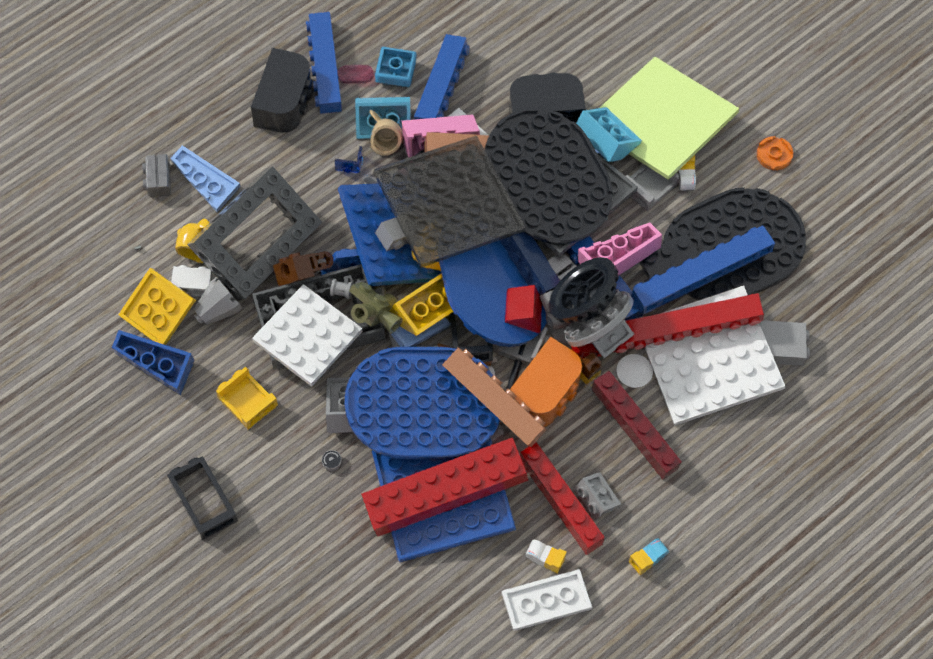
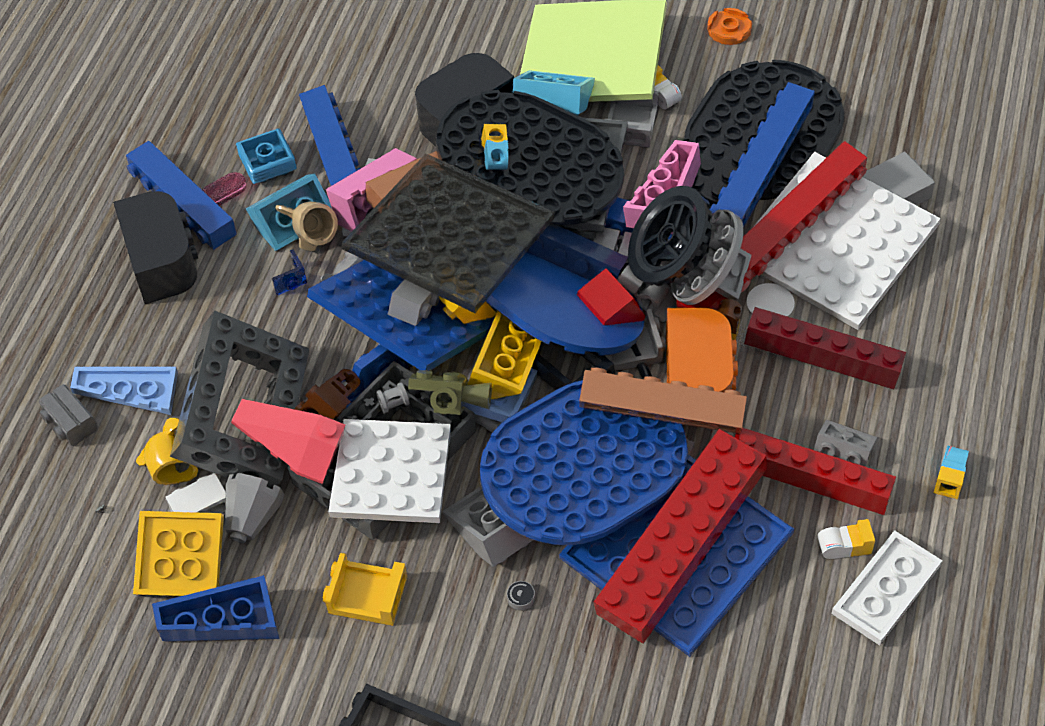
camera: 30 degrees left, 10 degrees down
(265, 280) = (295, 436): none -> coral wedge
(523, 158) = (495, 147): none -> medium azure leg

